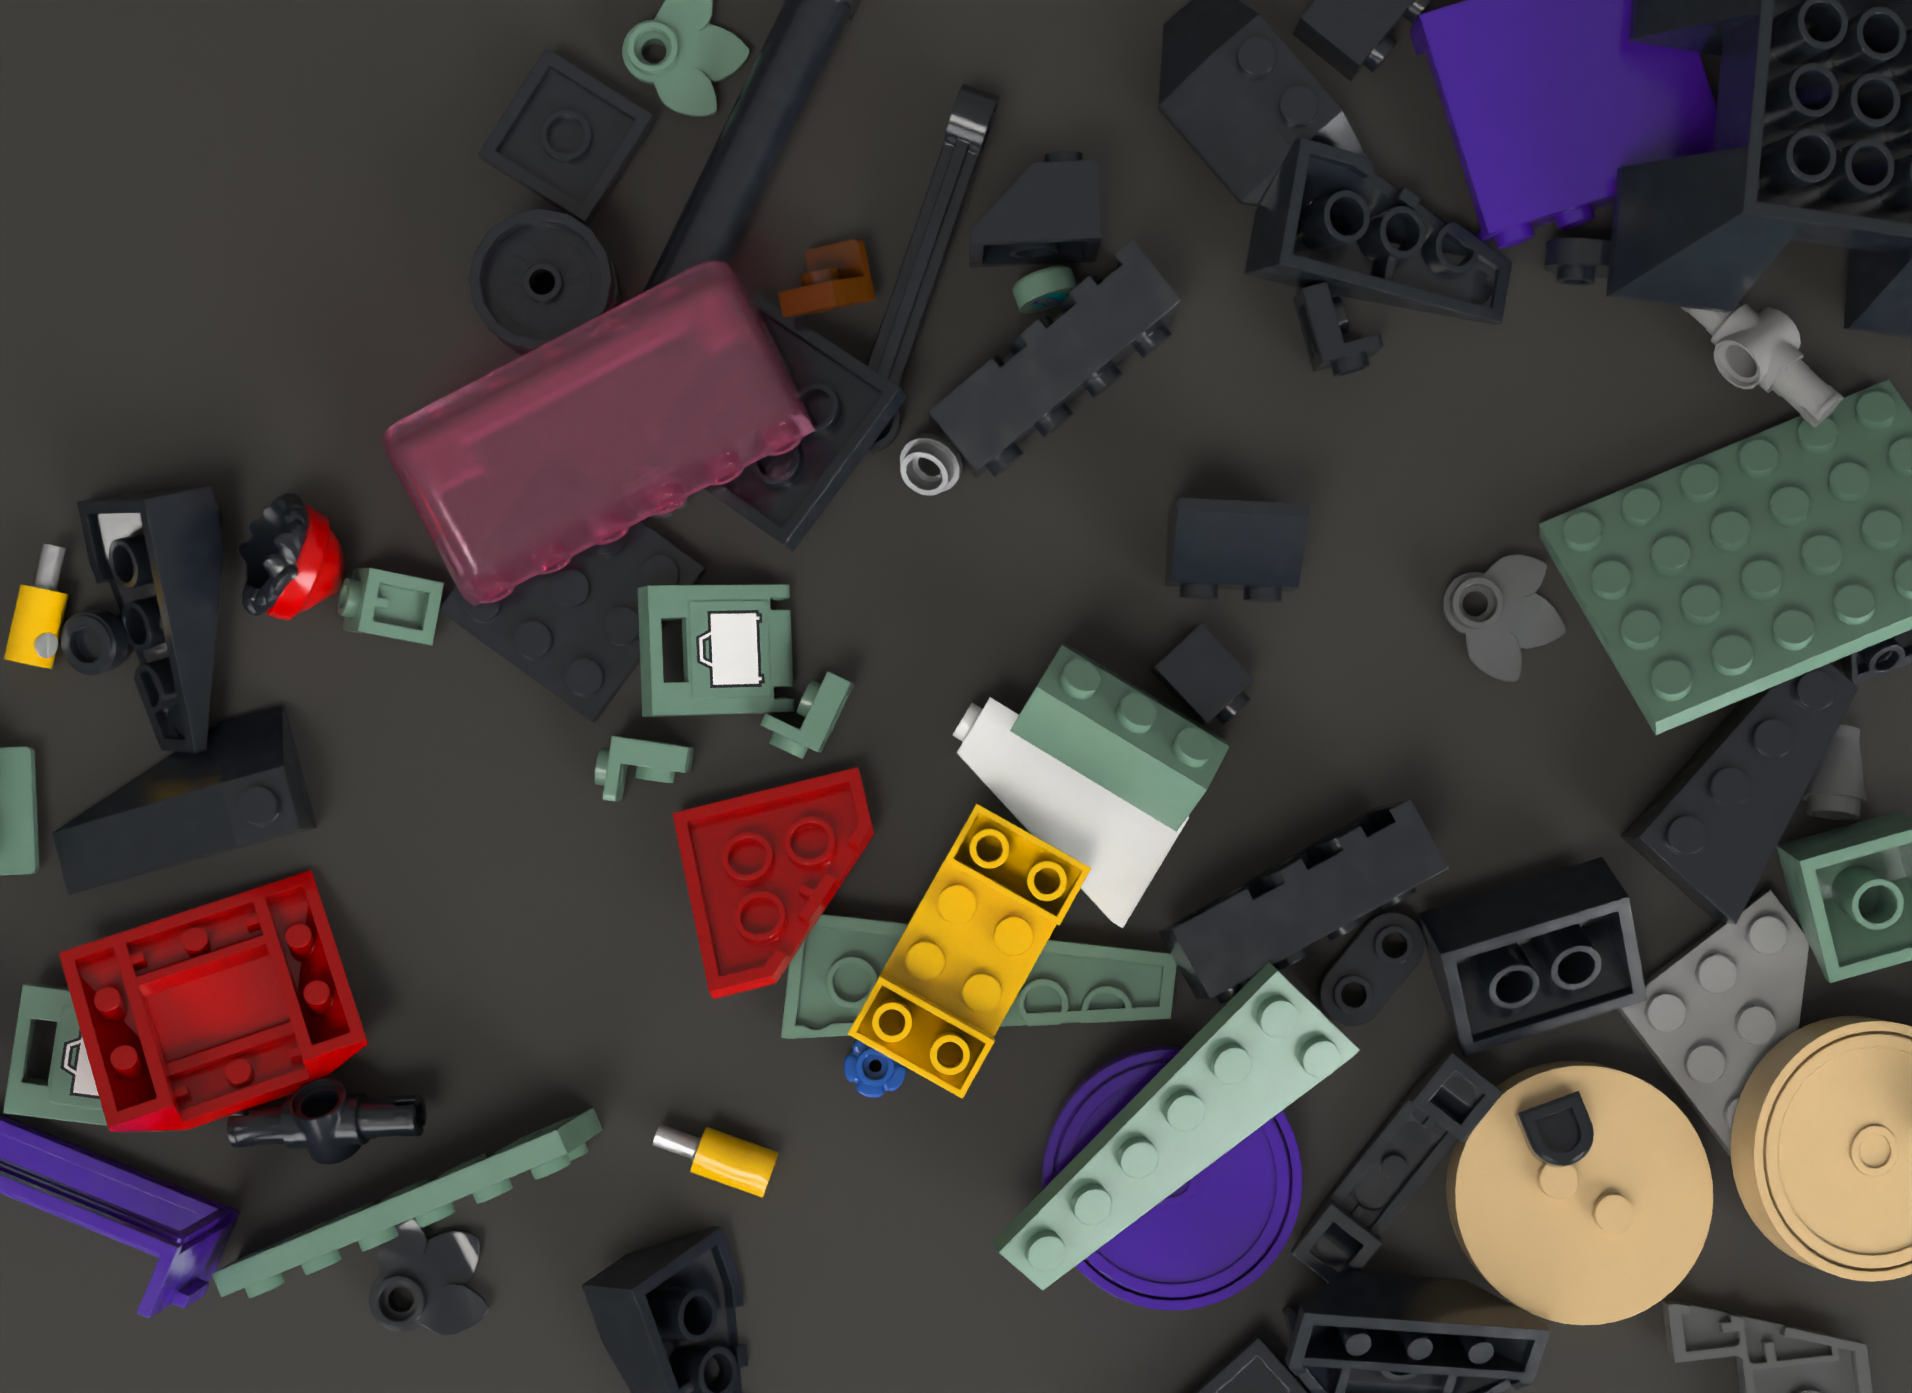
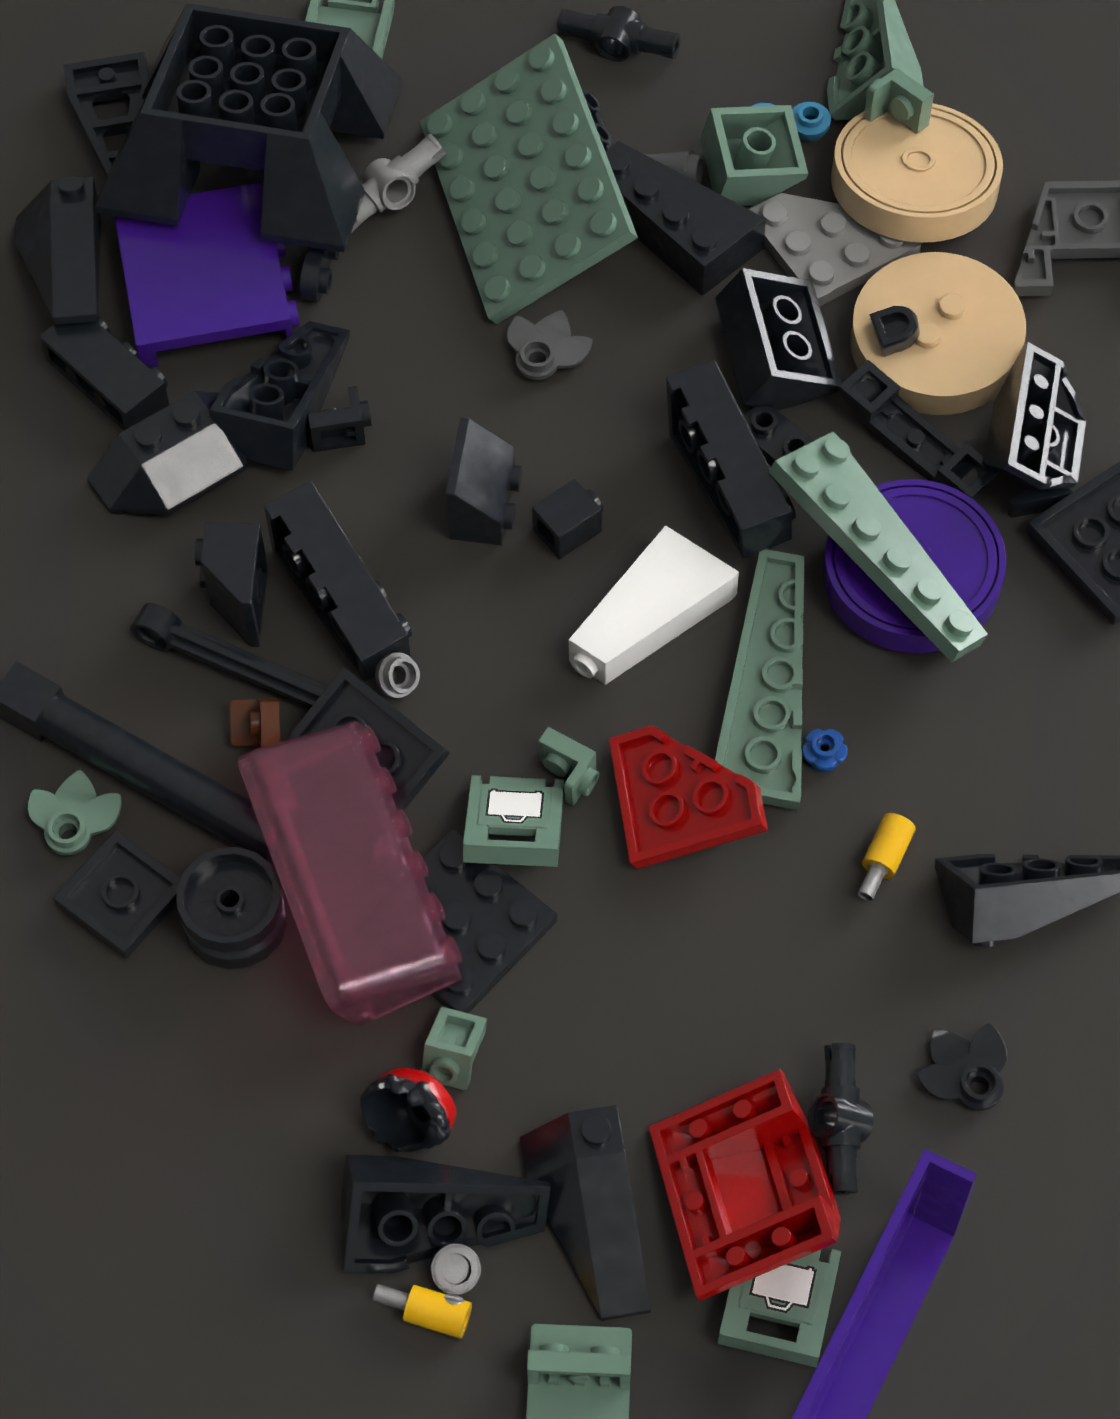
camera: 80 degrees left, 25 degrees down
(426, 1200) = (868, 958): sand green wing -> none
(653, 760) = (587, 881): sand green bracket -> none
(968, 950) = (739, 664): yellow slope -> none
(1044, 289) = (284, 591): sand green tile -> none
(1121, 737) = (603, 557): sand green slope -> none

